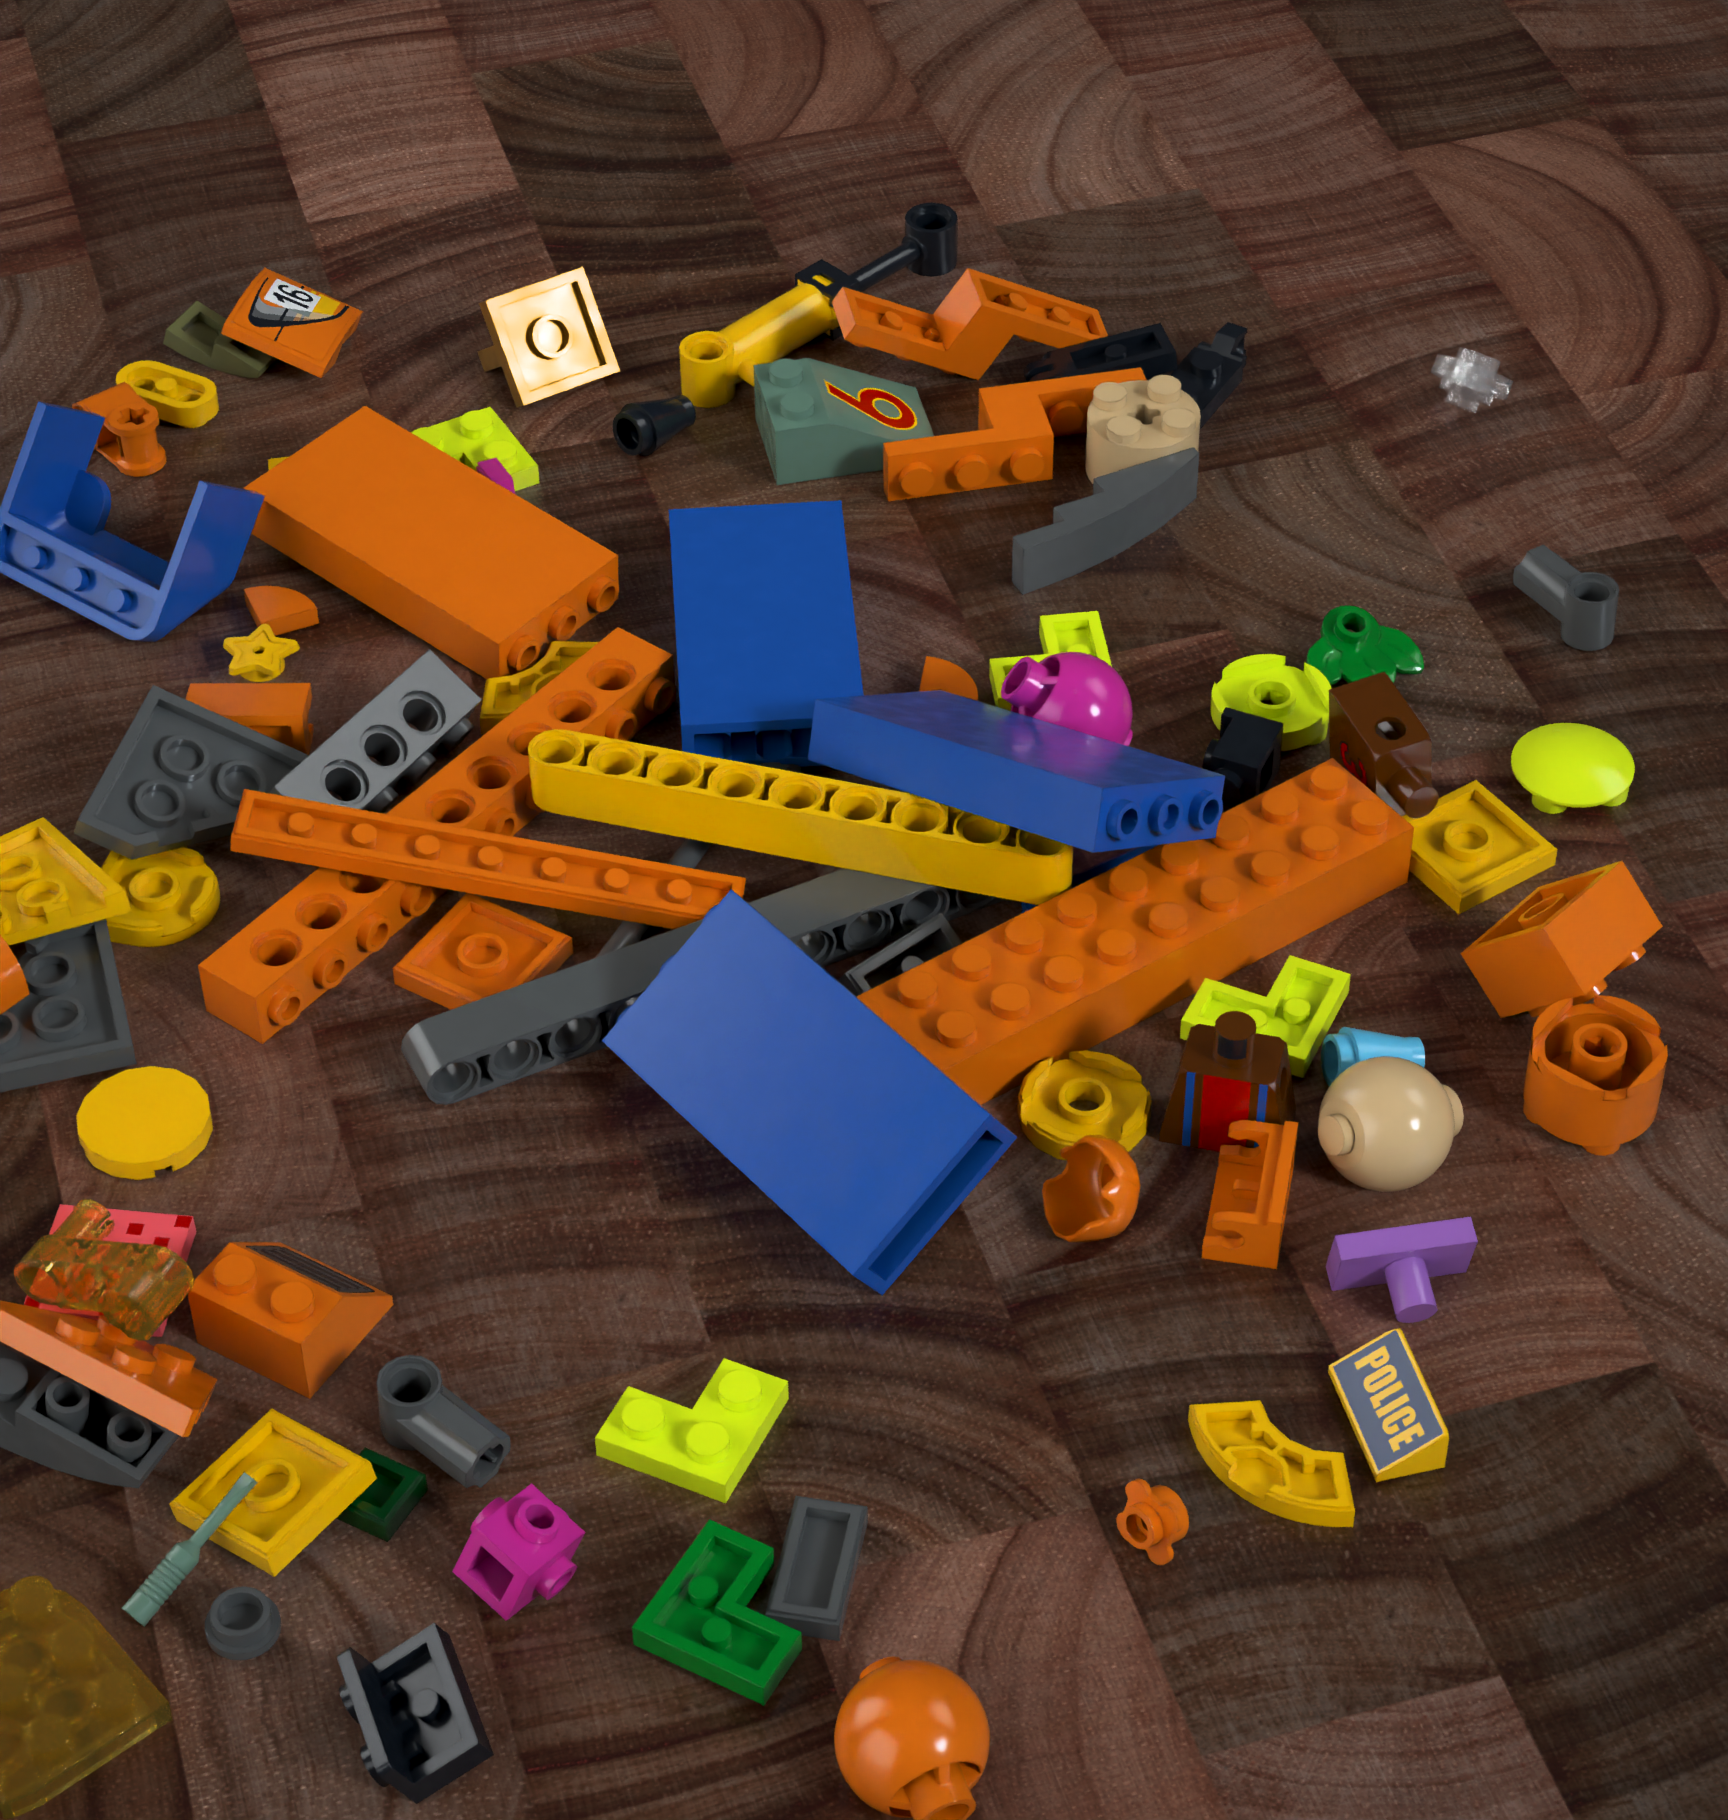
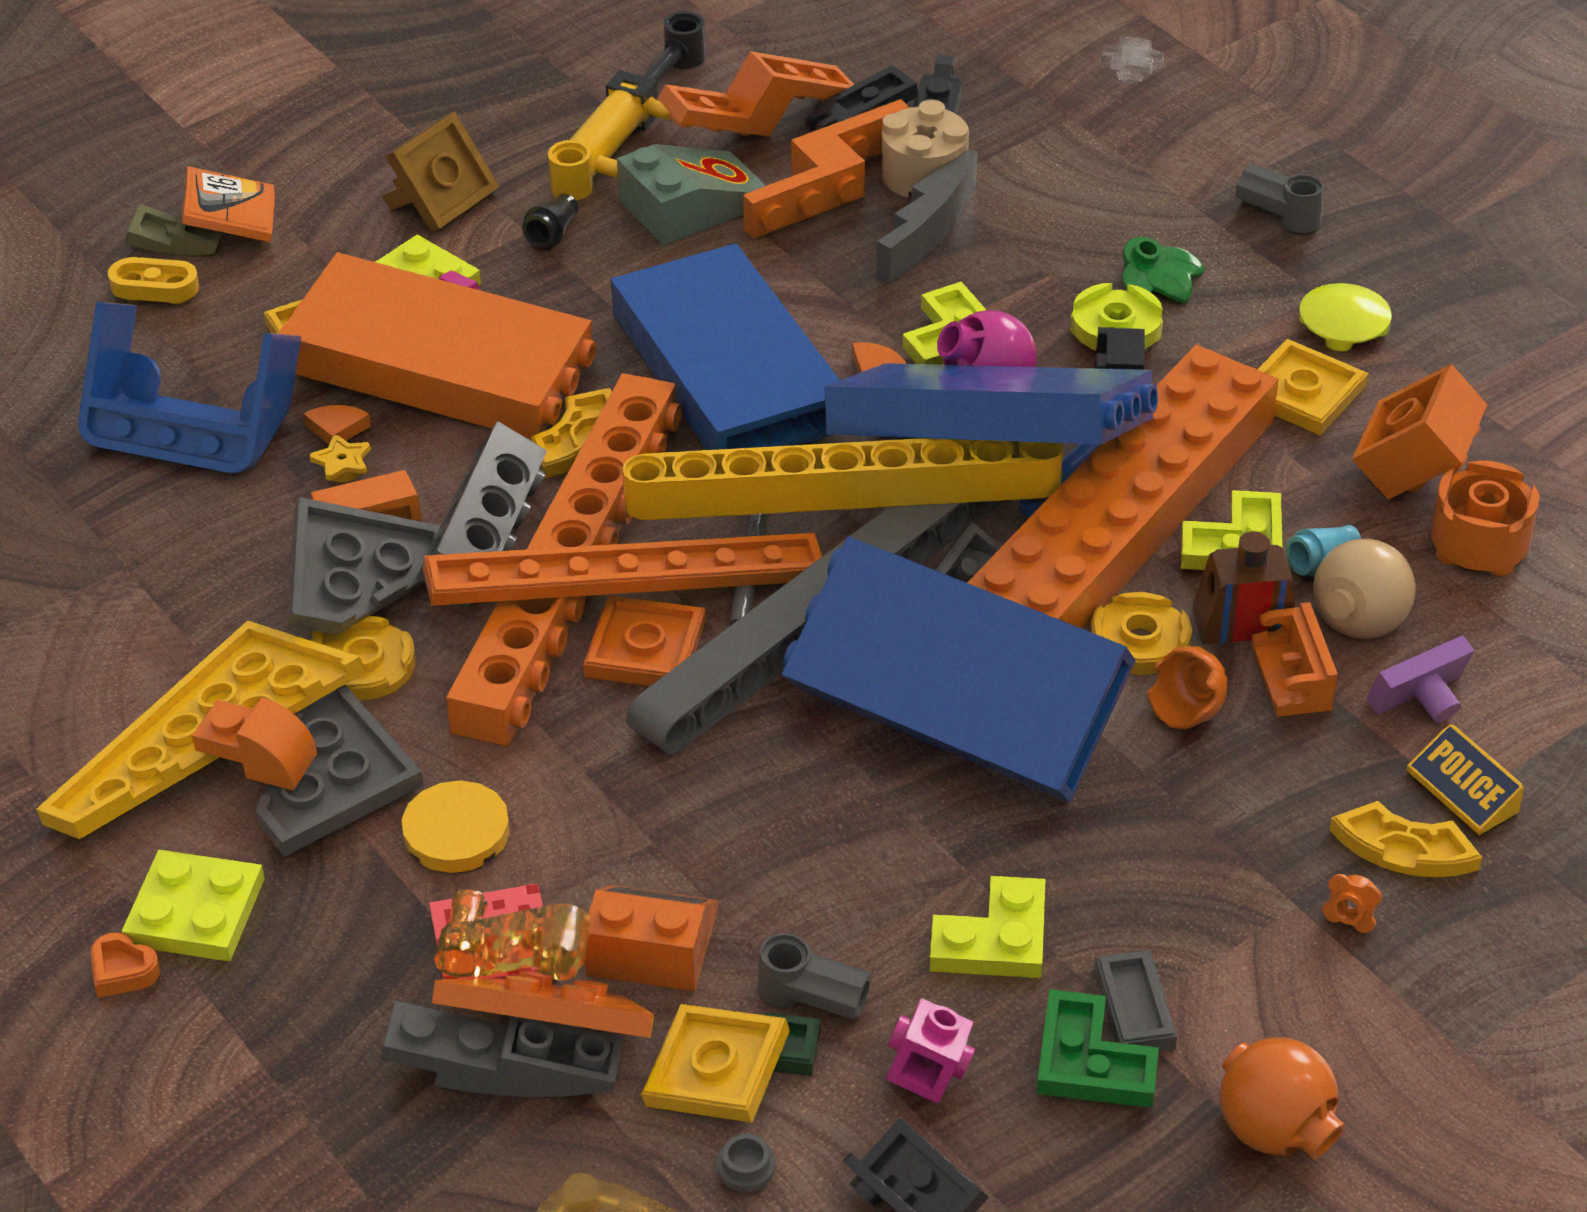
camera: 20 degrees left, 0 degrees up
(128, 430) = (151, 322): orange piece -> none
(182, 1558) = (678, 1129): sand green piece -> none
(1383, 744) = (1227, 323): reddish brown torso -> none

